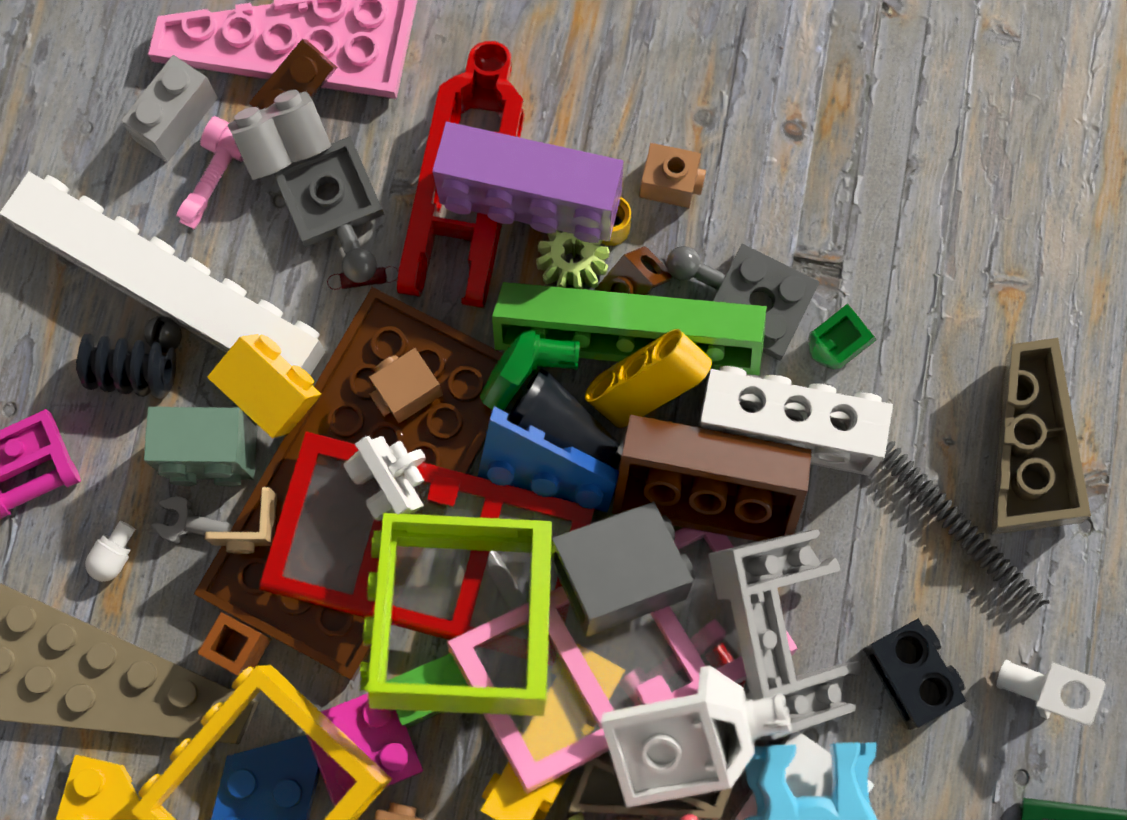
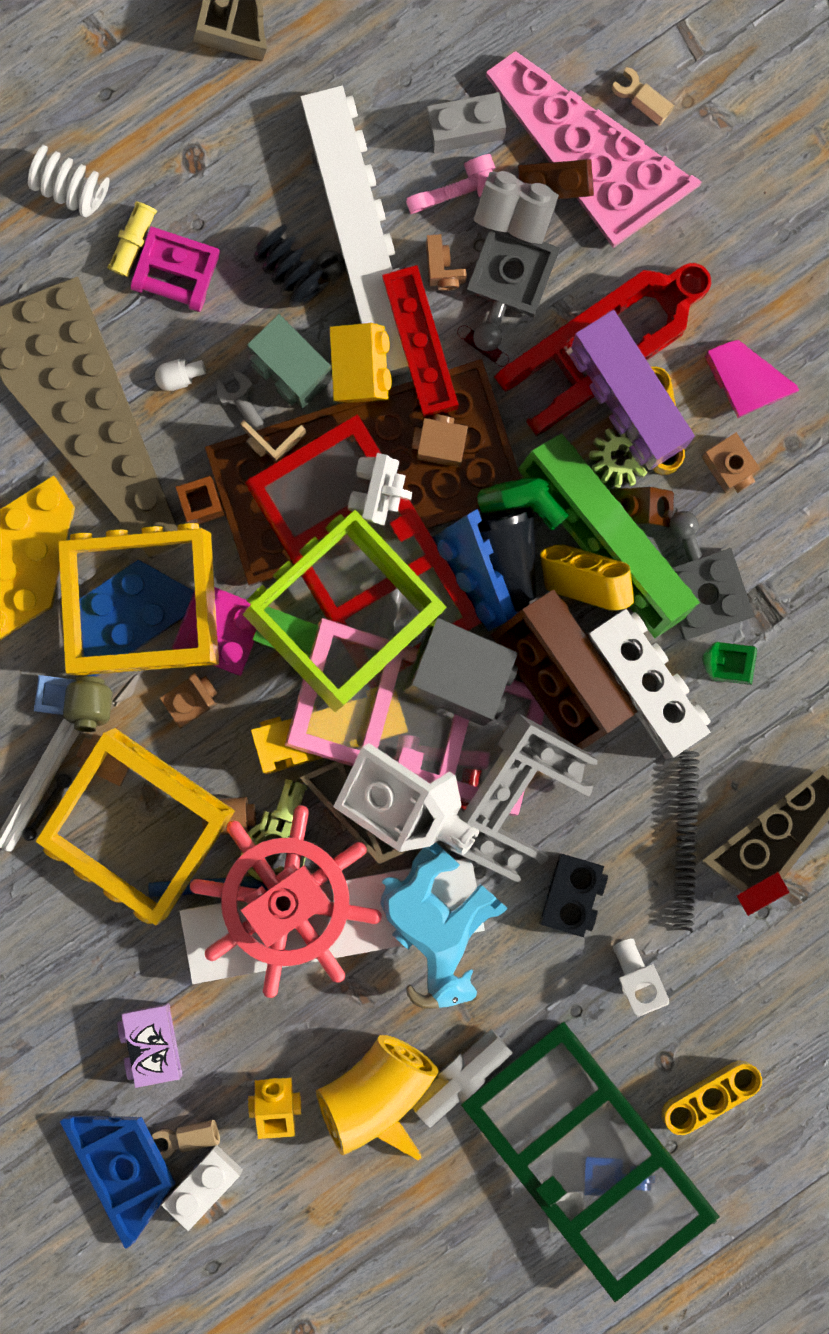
camera: 40 degrees right, 10 degrees up
(258, 245) = (437, 258): none -> medium nougat bracket
(303, 318) = (420, 341): none -> red hinge
(612, 98) = (747, 378): none -> dark pink slope
(1083, 501) = (763, 894): none -> red piece

